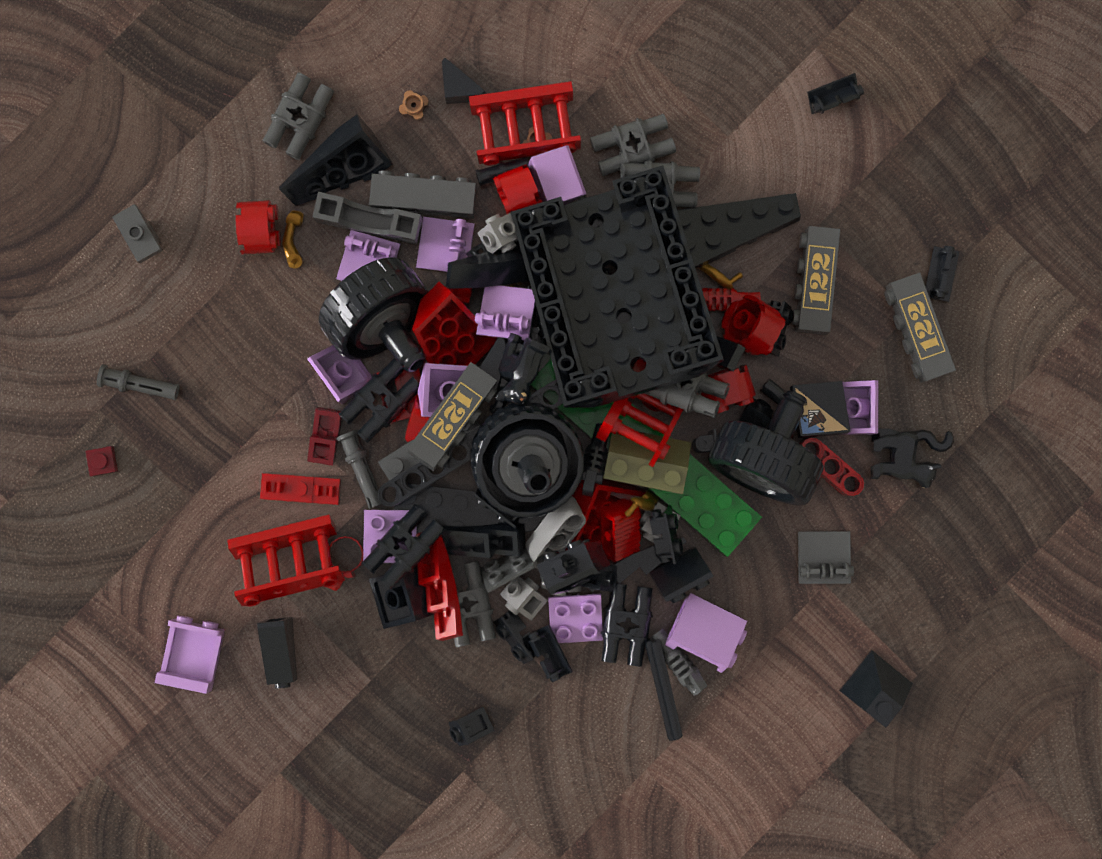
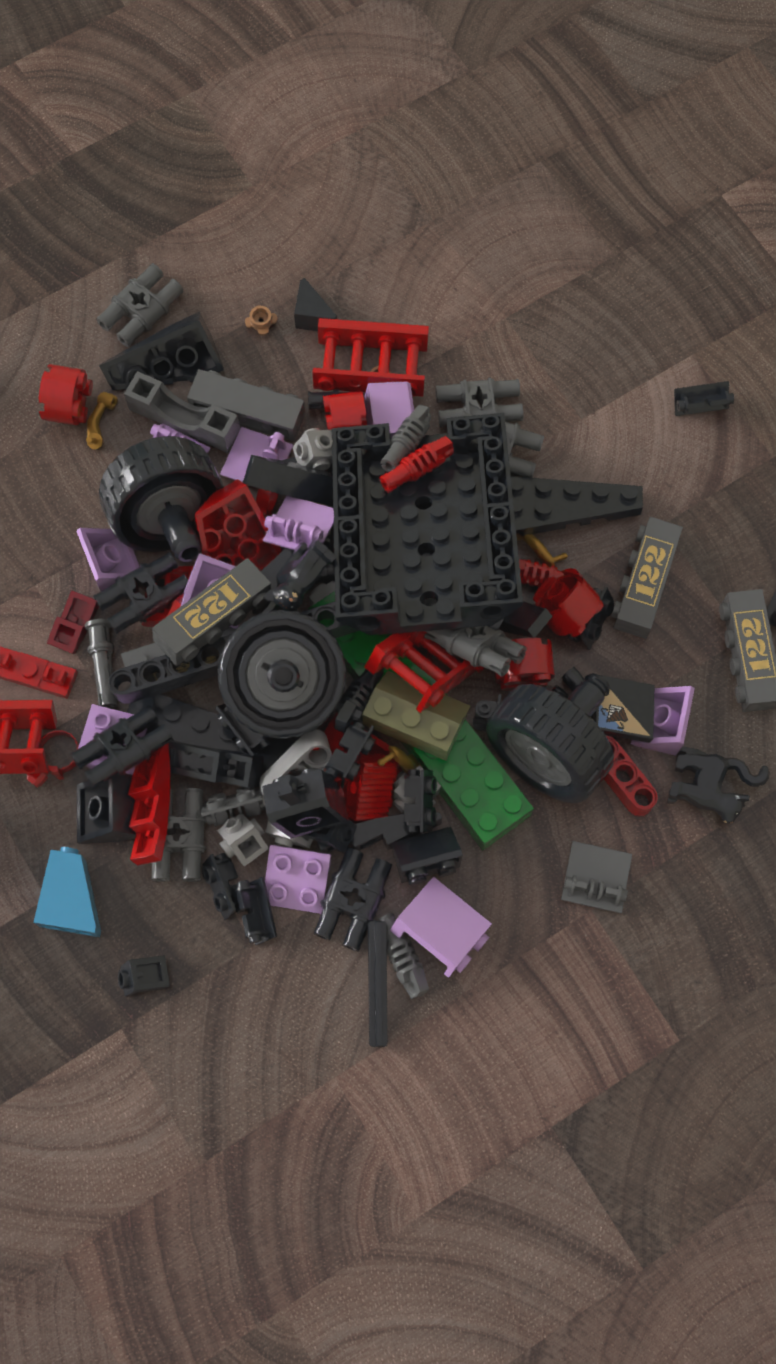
camera: 15 degrees right, 15 degrees down
(390, 676) = (67, 895): none -> dark azure slope
(581, 207) = (407, 437): none -> dark grey hinge
(597, 233) = (418, 464): none -> red hinge
(600, 524) = (357, 743): none -> black hinge
(877, 688) = (628, 1042): black slope -> none

